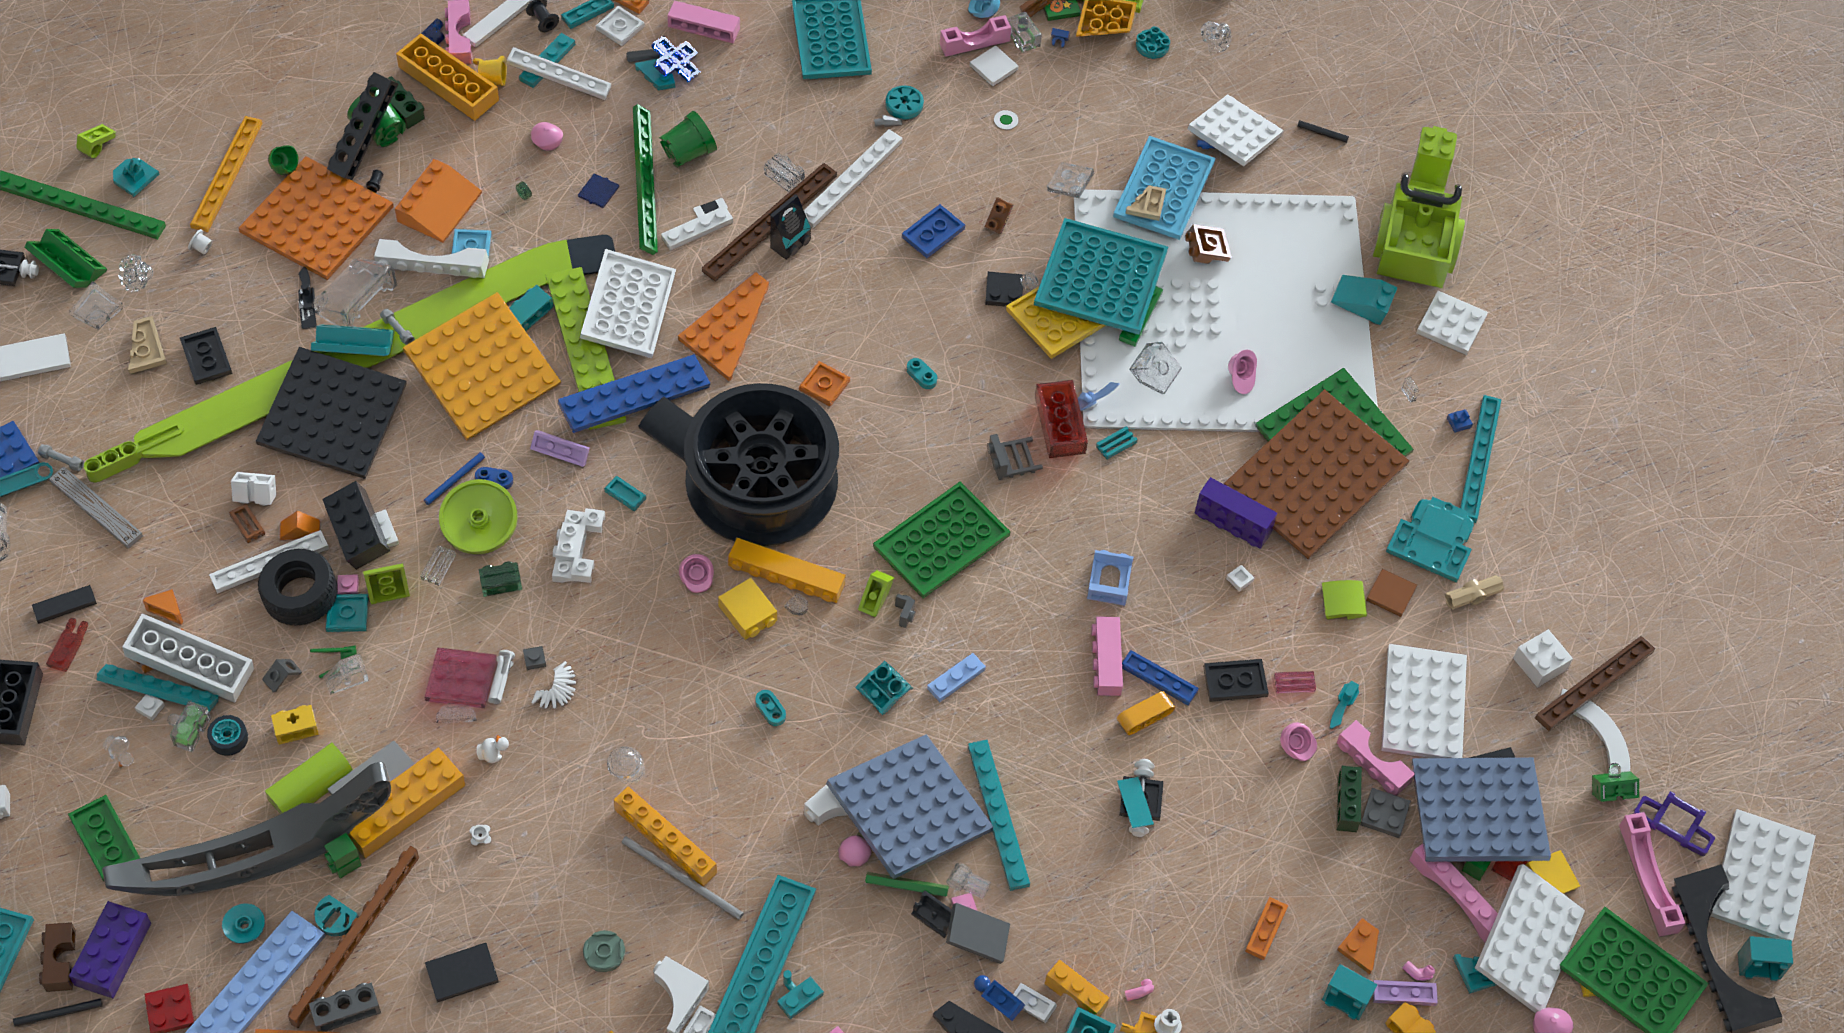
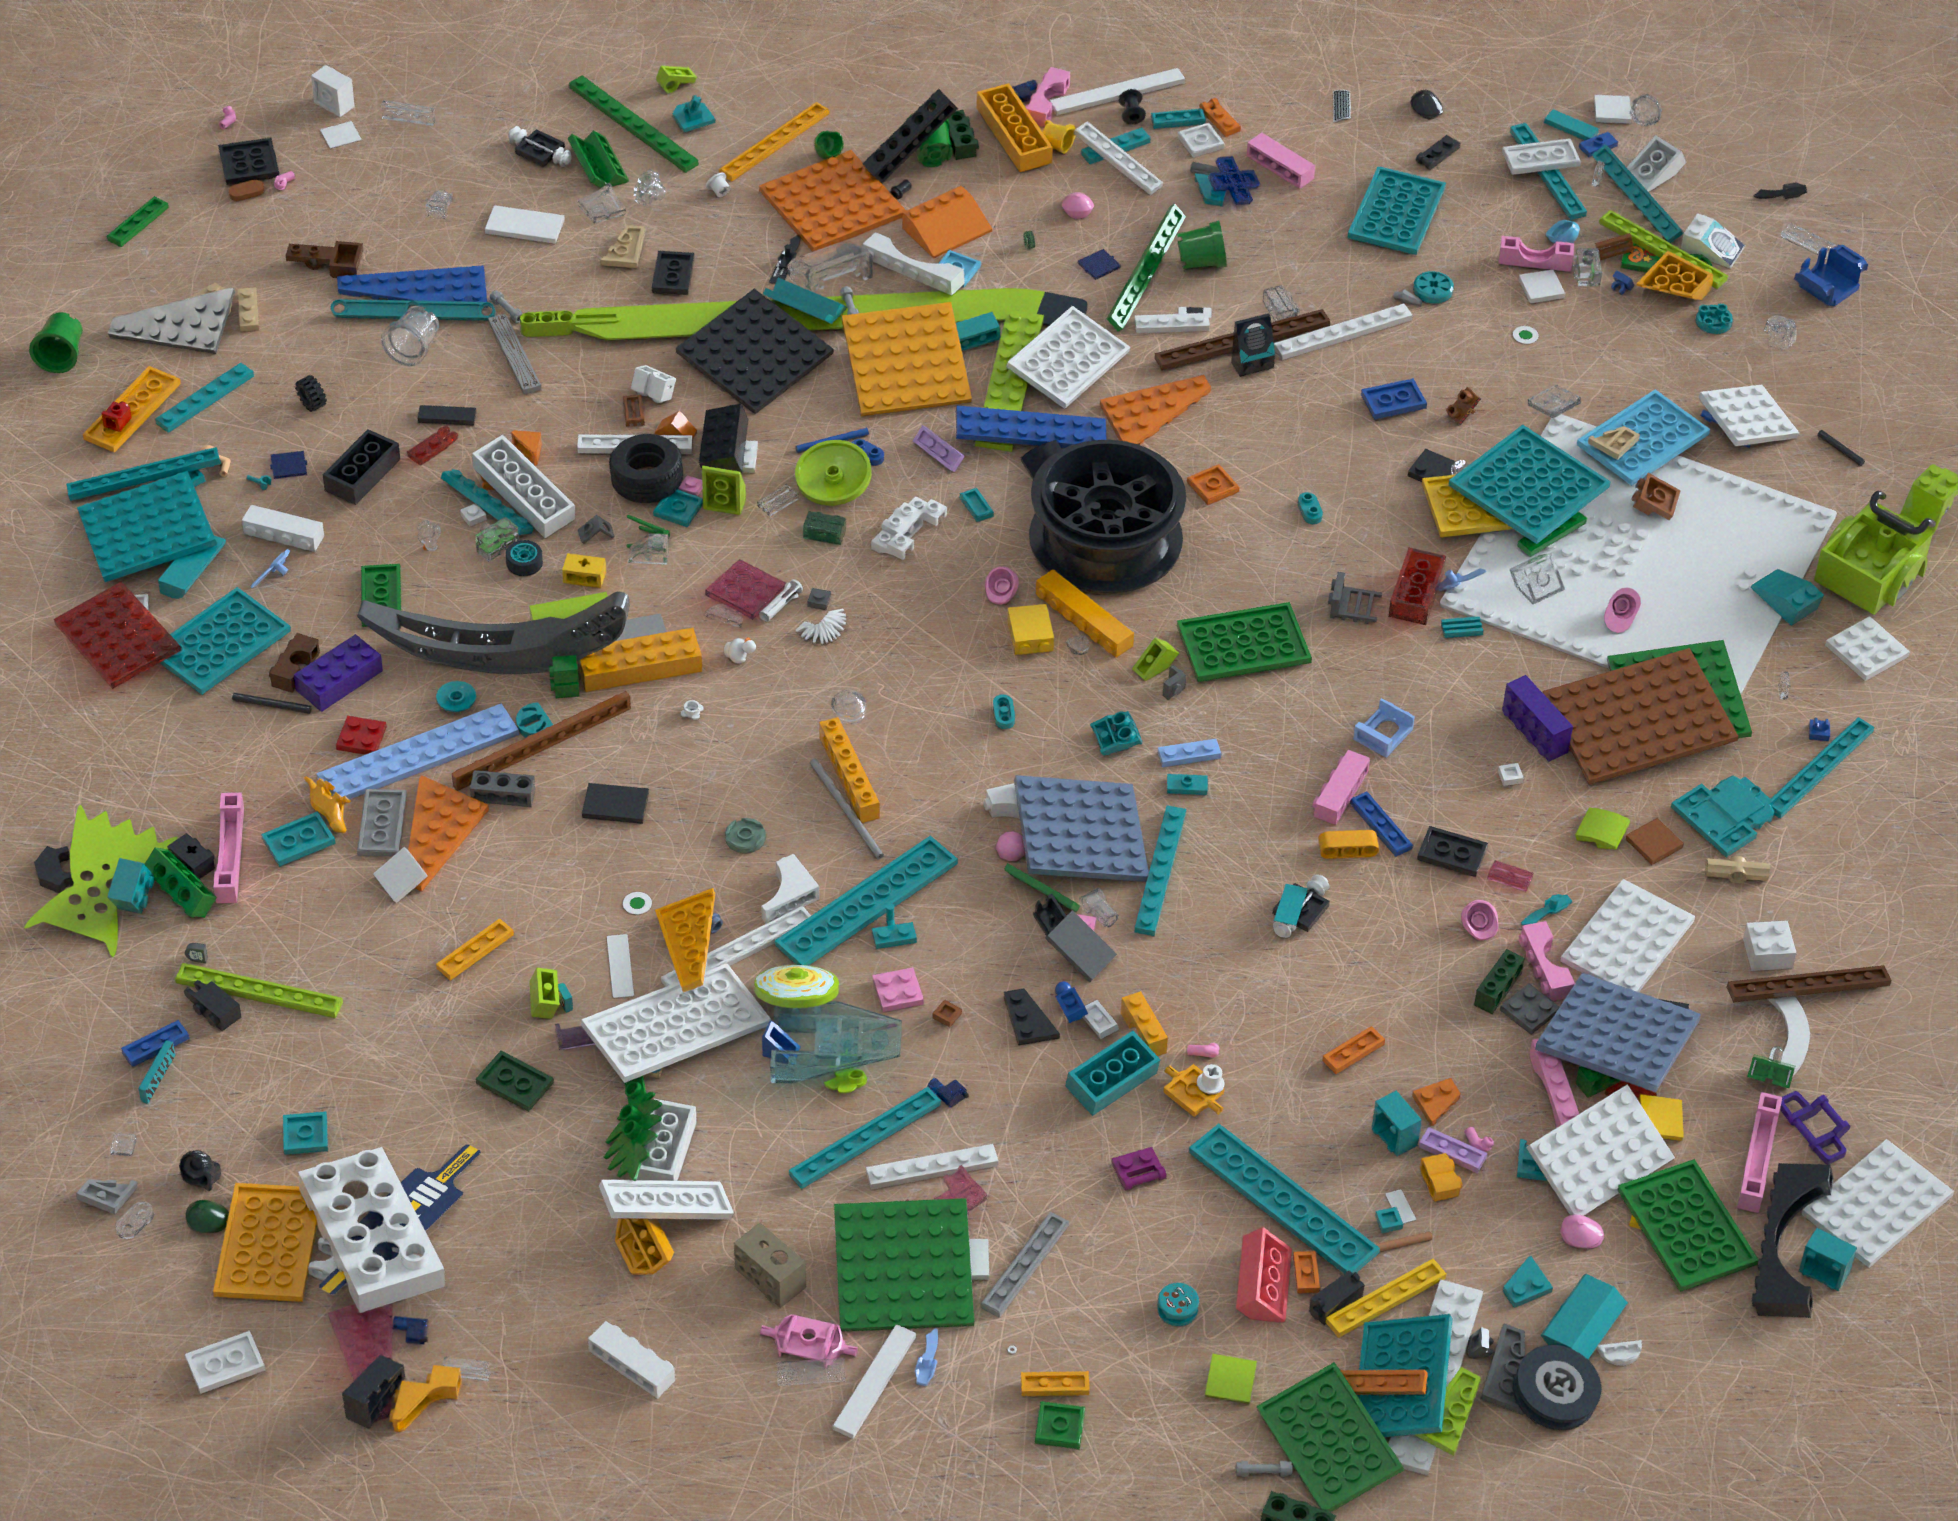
camera: 30 degrees right, 10 degrees down
(972, 712) = (1187, 784): none -> teal plate

